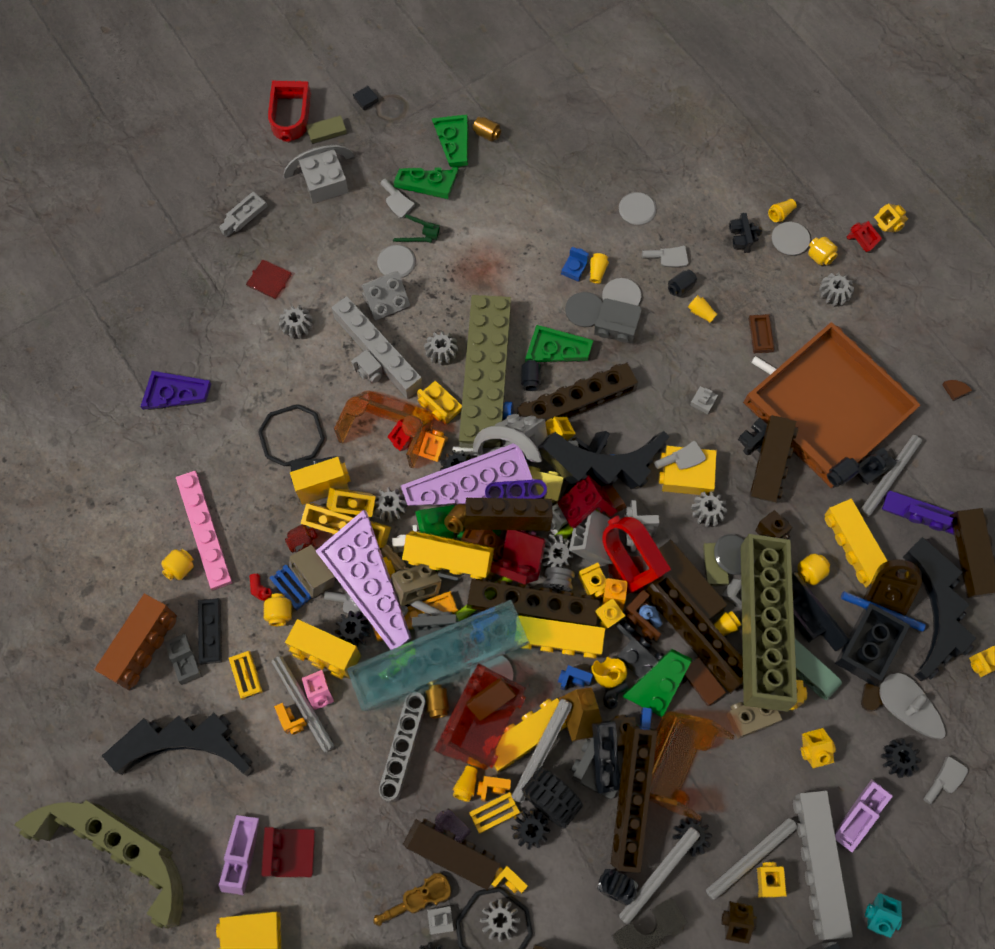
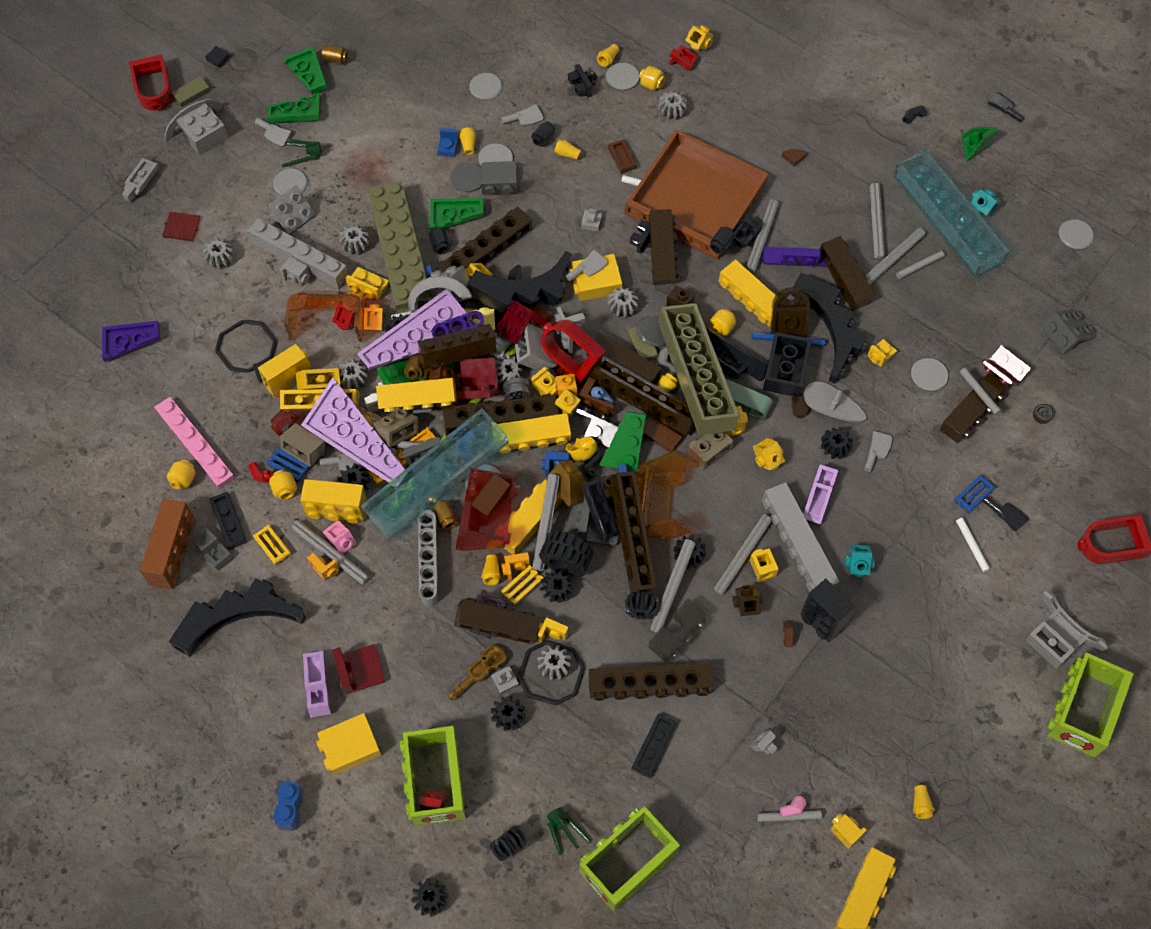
camera: 20 degrees left, 5 degrees down
(106, 829) = (201, 699): olive slope -> none

